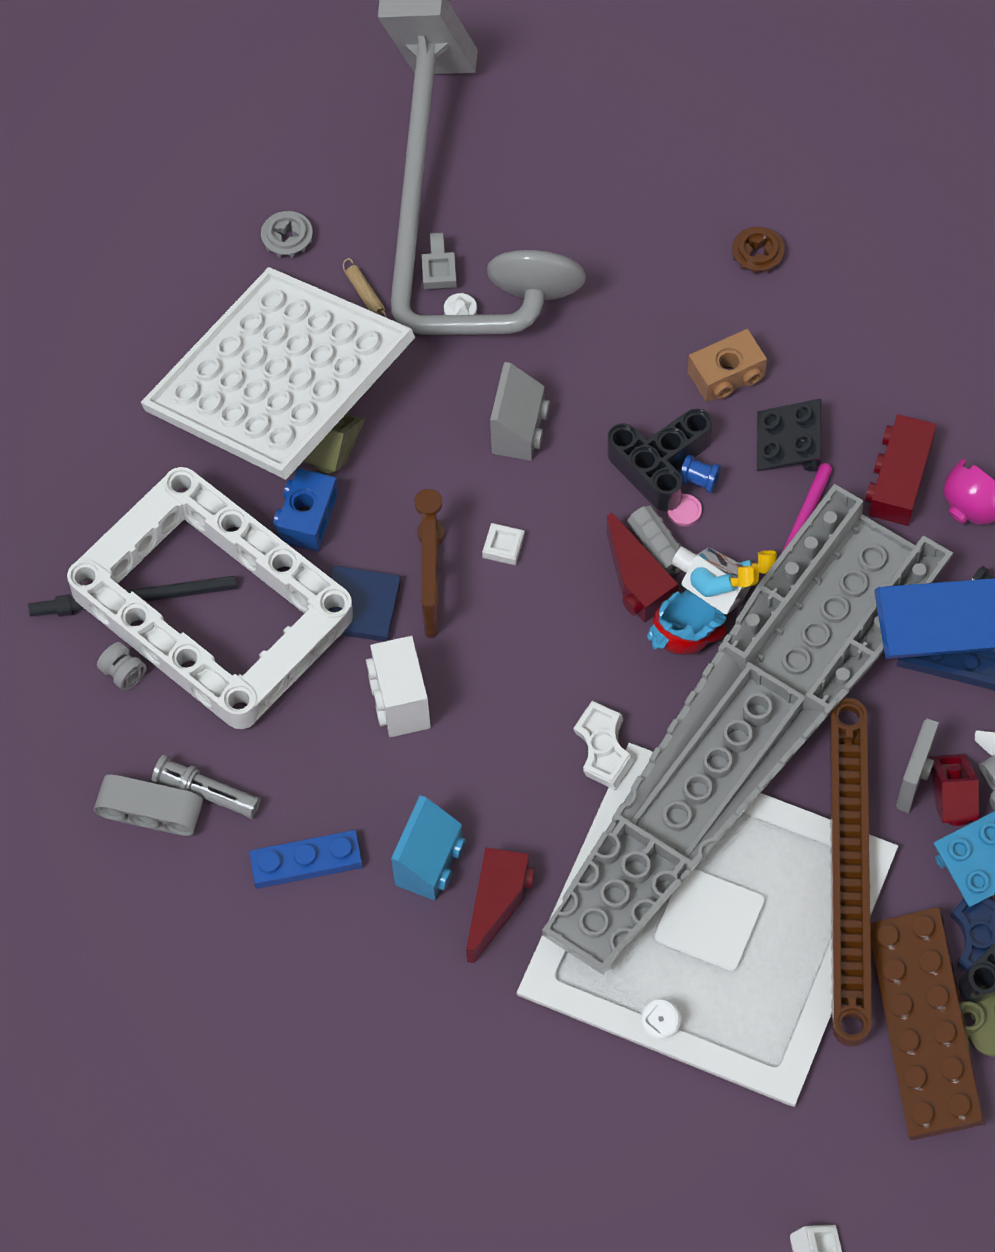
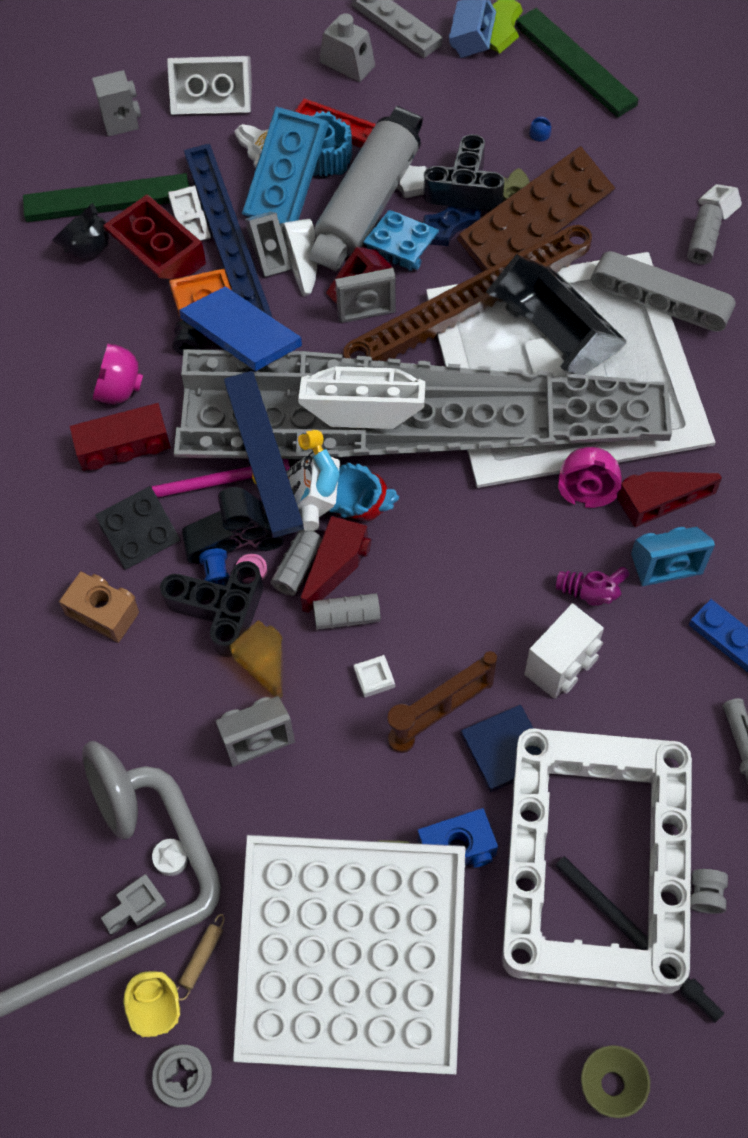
camera: 125 degrees left, 0 degrees up
(43, 487) = (631, 1071): none -> olive piece
(352, 235) = (151, 1003): none -> light yellow hair
(448, 767) = (594, 587): none -> magenta piece
(560, 836) = (590, 477): none -> dark pink cylinder
(578, 552) = (346, 611): none -> light grey axle
(580, 462) = (262, 656): none -> clear yellow slope
(606, 758) = (480, 510): white tile -> none
(661, 1019) = (663, 343): white tile -> none
(720, 501) = (234, 526): none -> black beam
(724, 1065) = (663, 291): none -> light grey beam
(757, 948) = (558, 313): none -> black windscreen
(776, 1182) = (705, 234): none -> light grey axle
(779, 551) = (263, 454): none -> dark blue tile
(784, 666) = (362, 396): none -> white wedge

